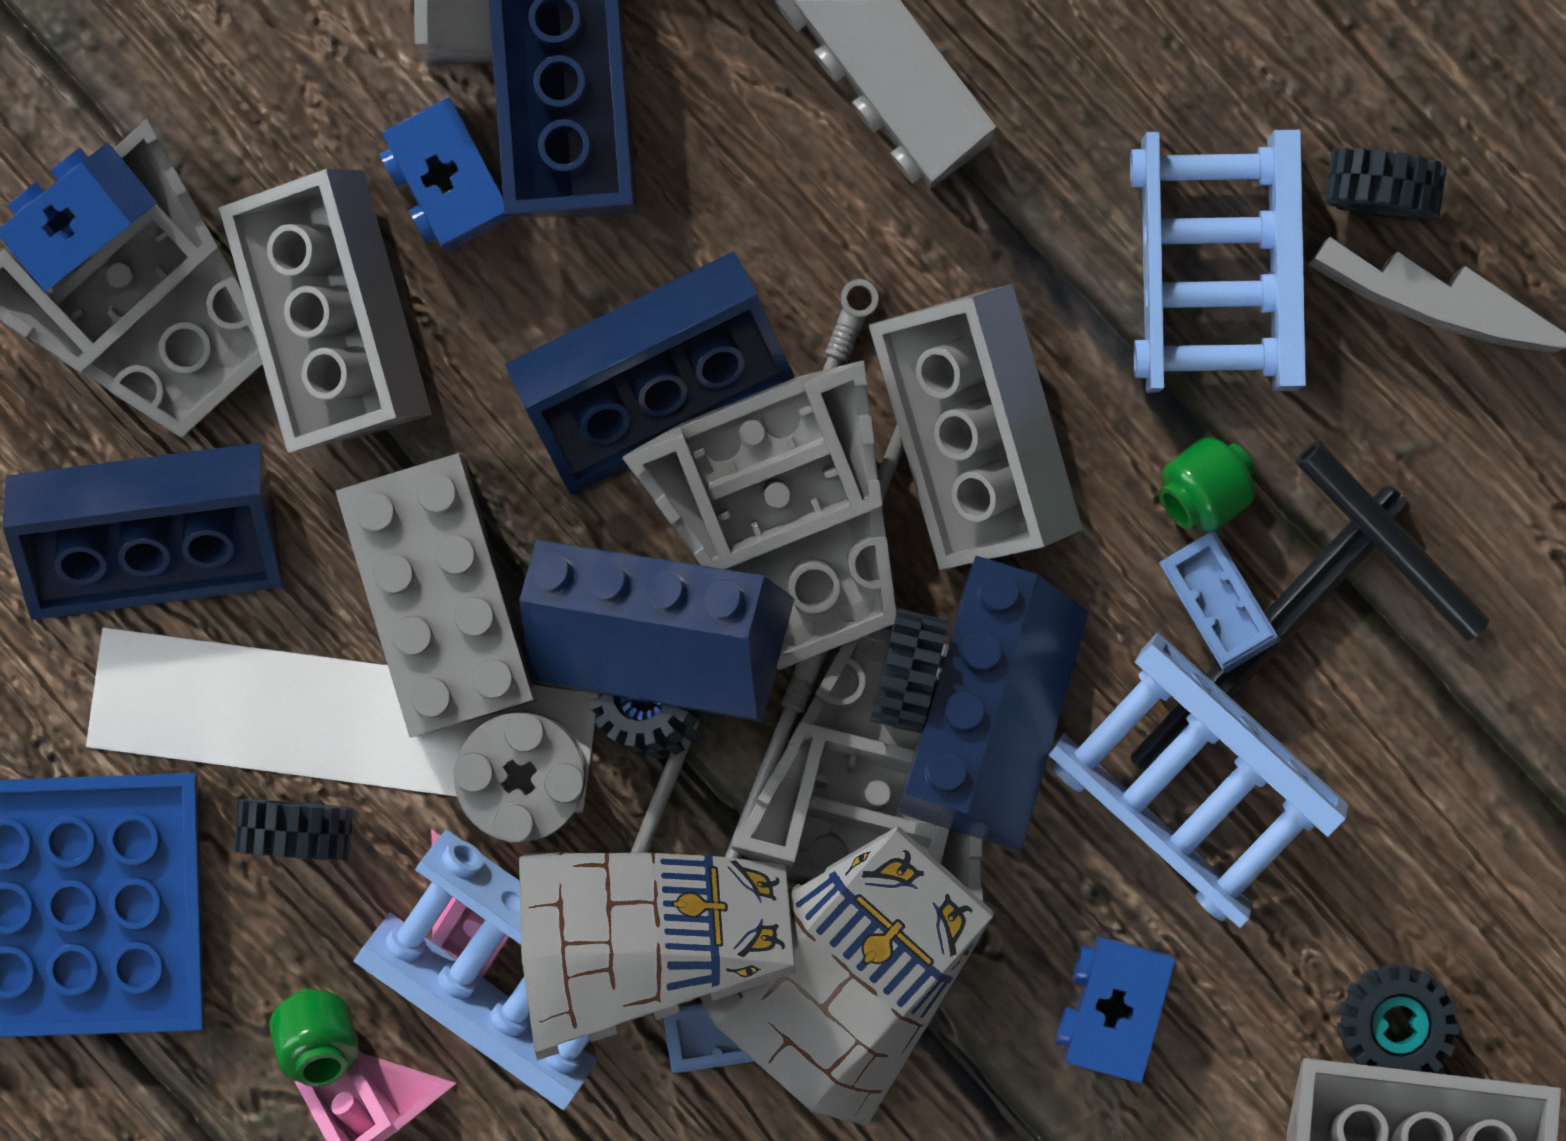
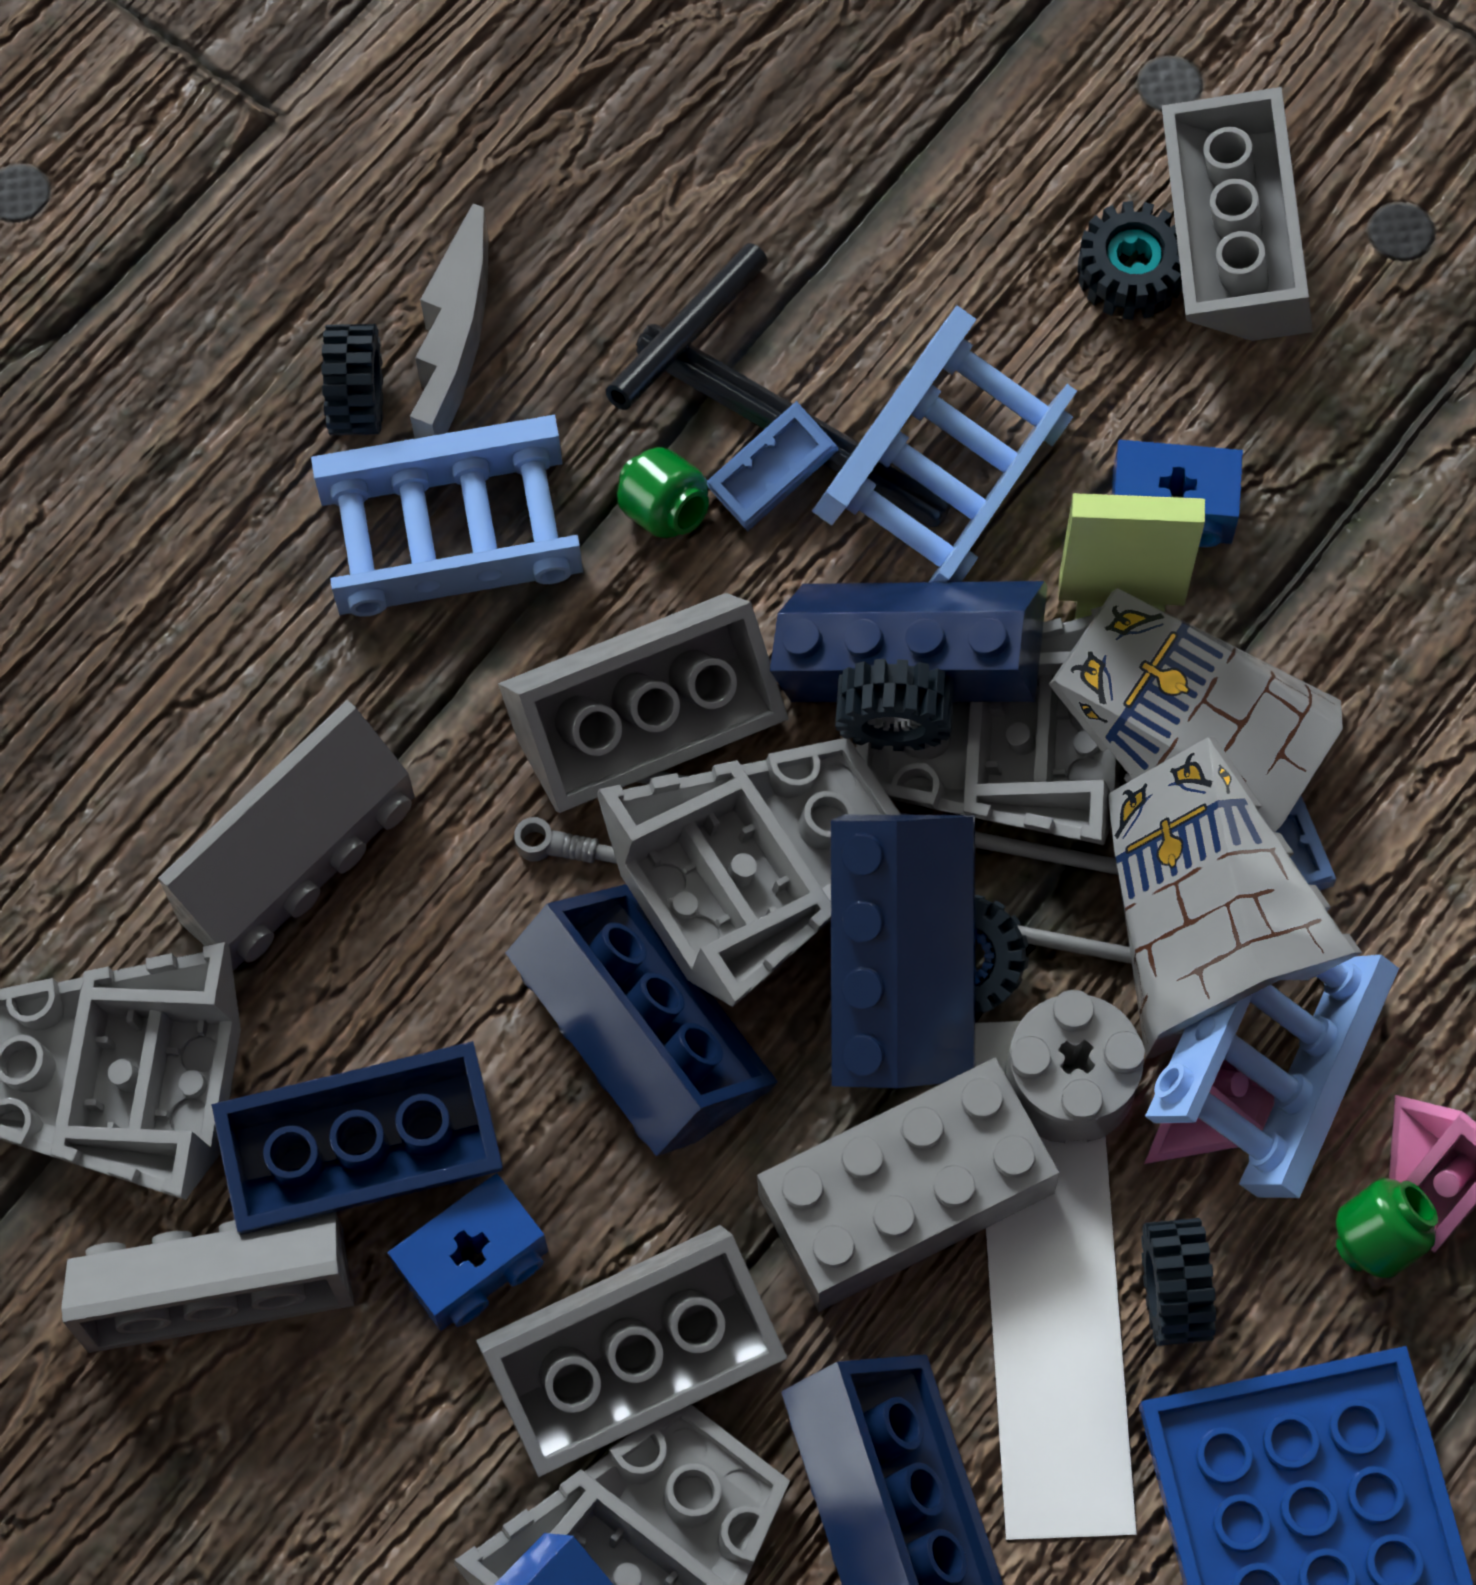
camera: 100 degrees left, 20 degrees down
(1017, 932) = (1129, 545): none -> yellowish green tile

